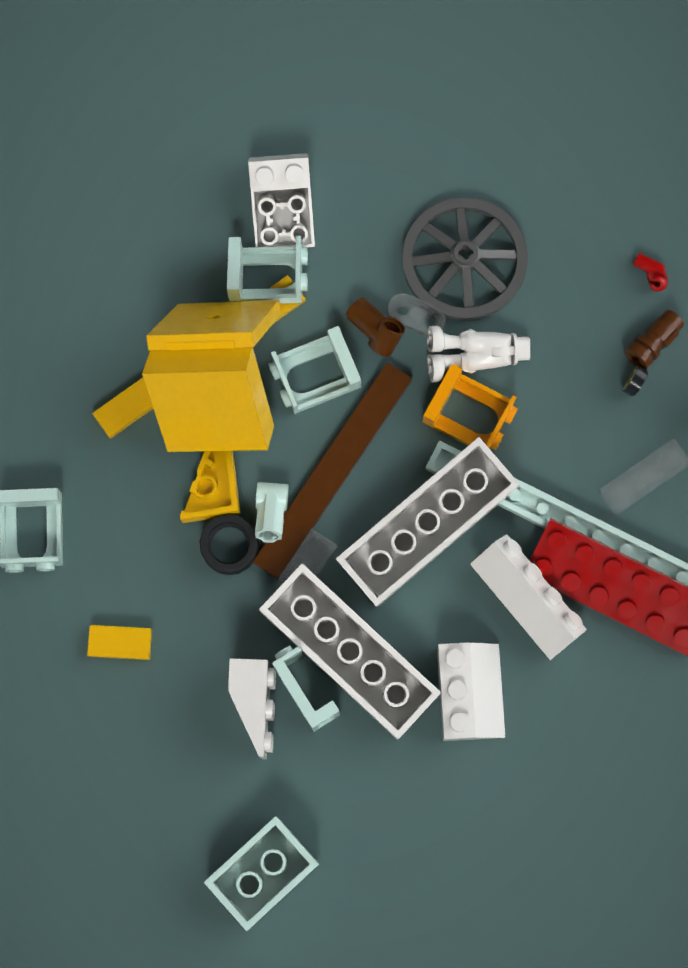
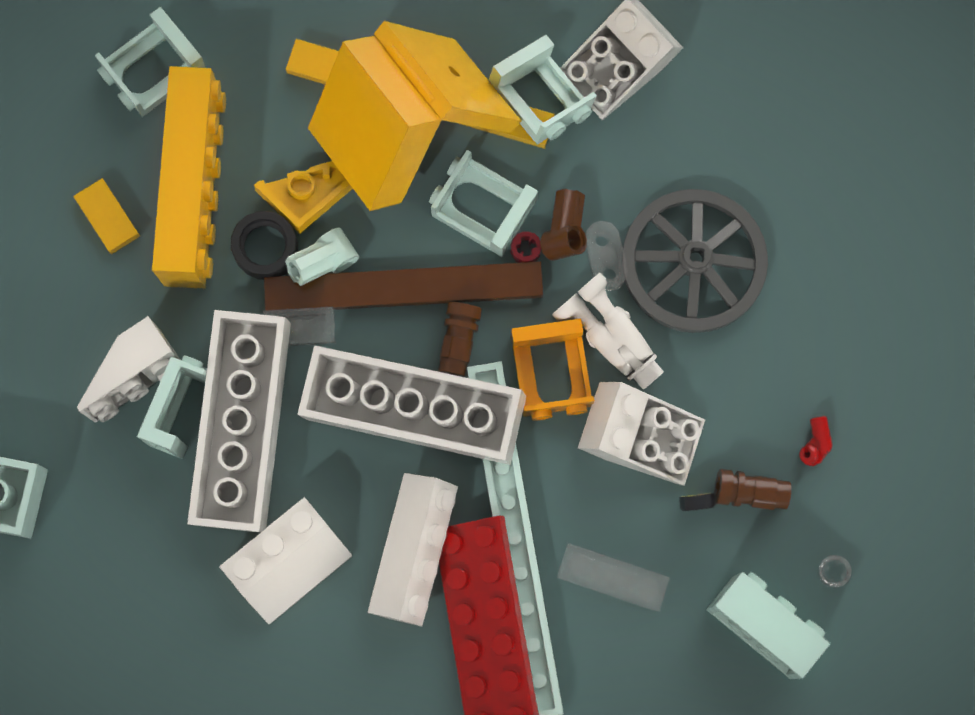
camera: 50 degrees right, 0 degrees up
(138, 559) = (188, 177): none -> yellow brick
(377, 363) = (516, 244): none -> dark red bush
(400, 458) = (458, 339): none -> reddish brown axle
(559, 383) = (641, 432): none -> white slope

